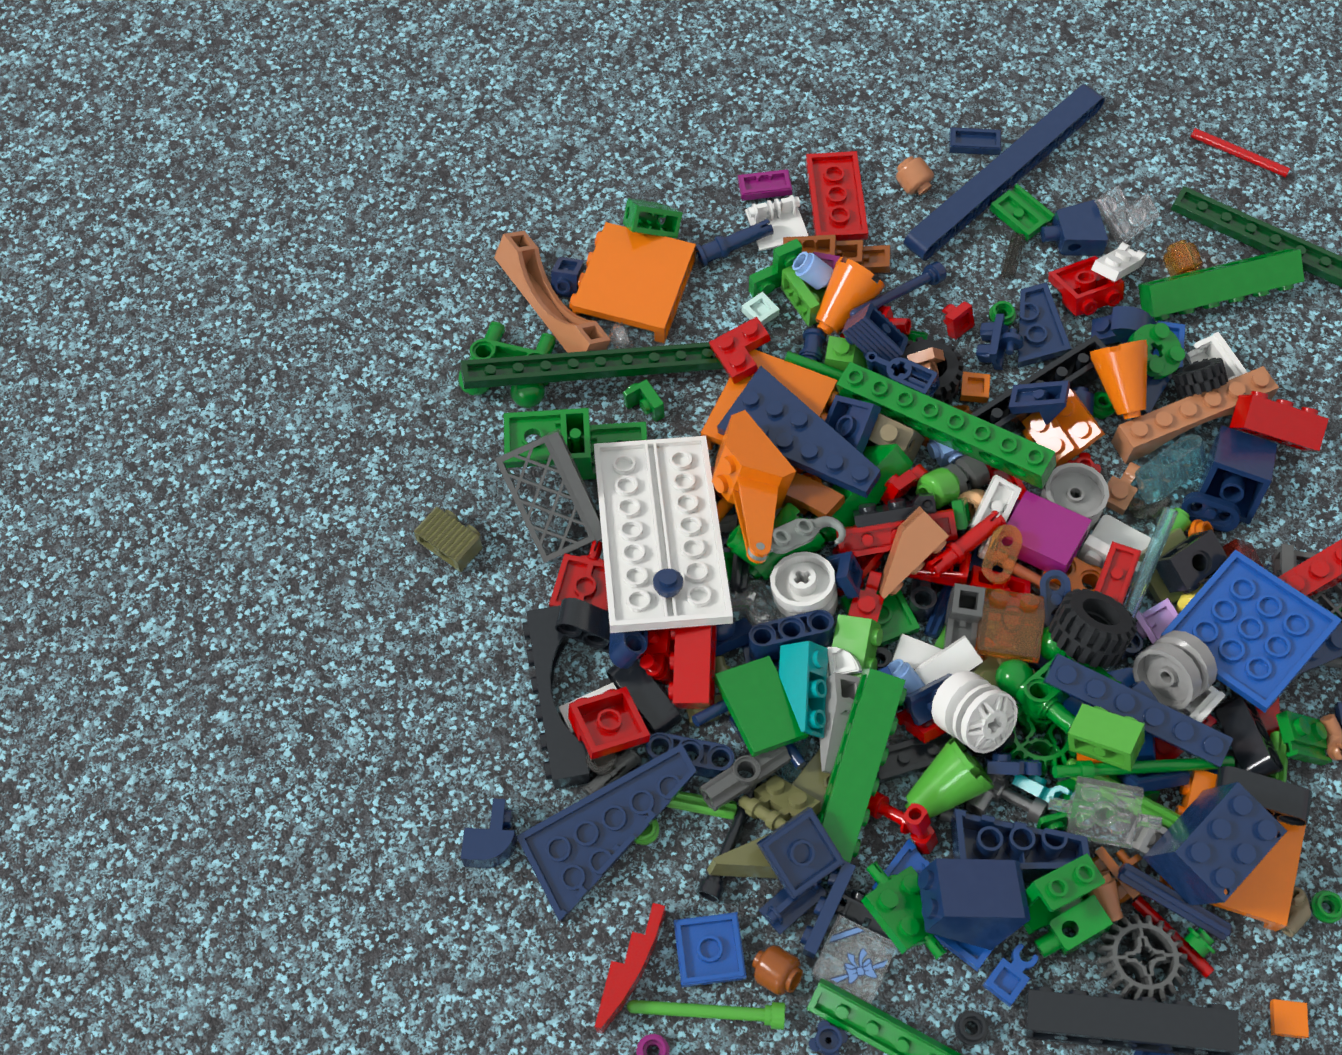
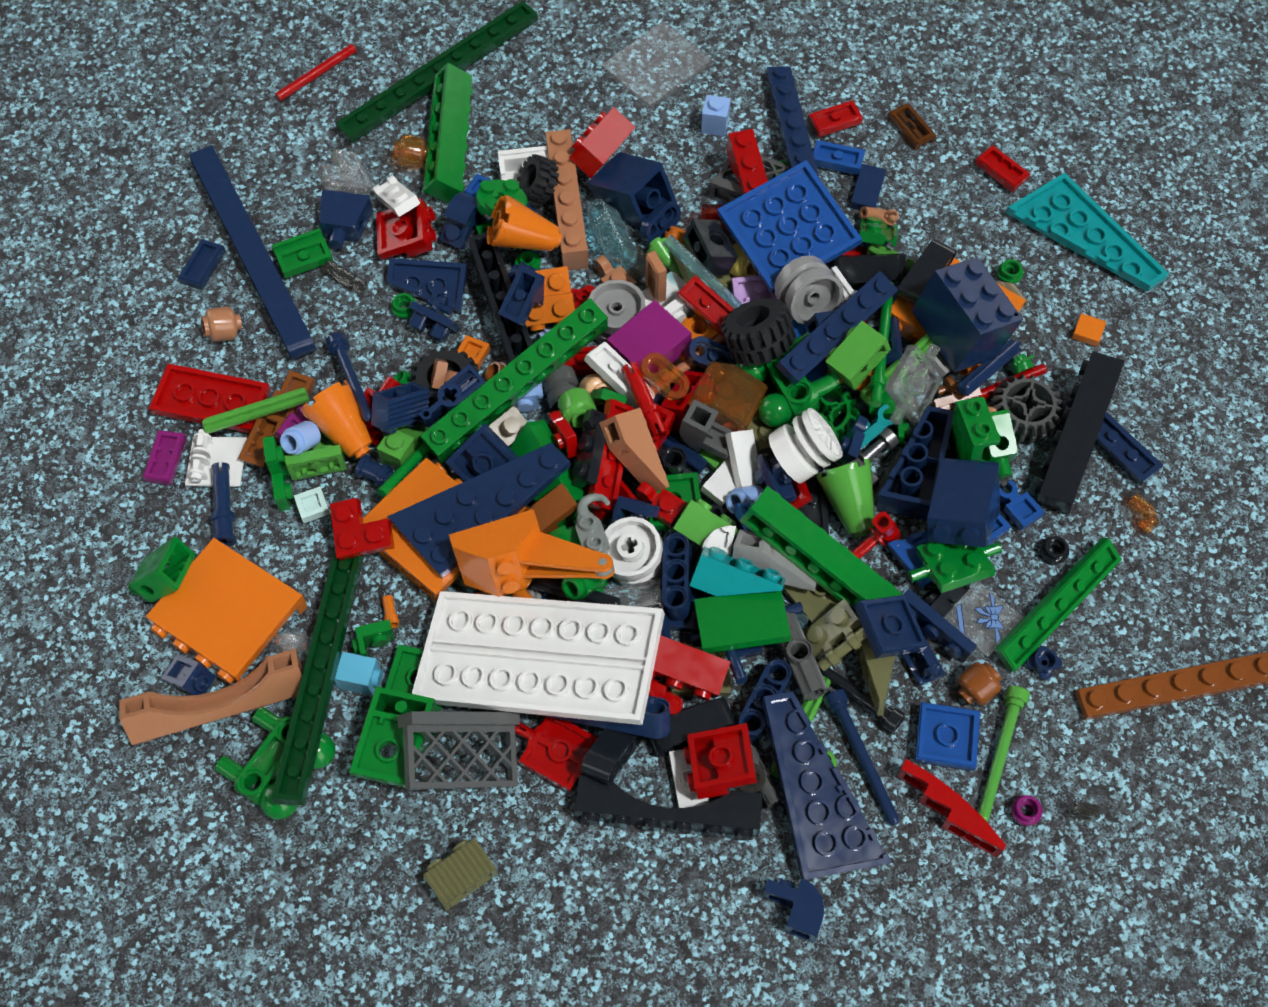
camera: 75 degrees left, 0 degrees up
(608, 399) = (358, 673): none -> medium azure brick
(668, 582) = (609, 655): dark blue plate -> none
(673, 410) = (389, 610): none -> orange piece
(710, 830) = (838, 703): none -> dark blue piece
(830, 229) = (255, 410): none -> bright green axle
(958, 319) = (395, 342): red tile -> none
(1127, 518) = (656, 277): none -> nougat tile

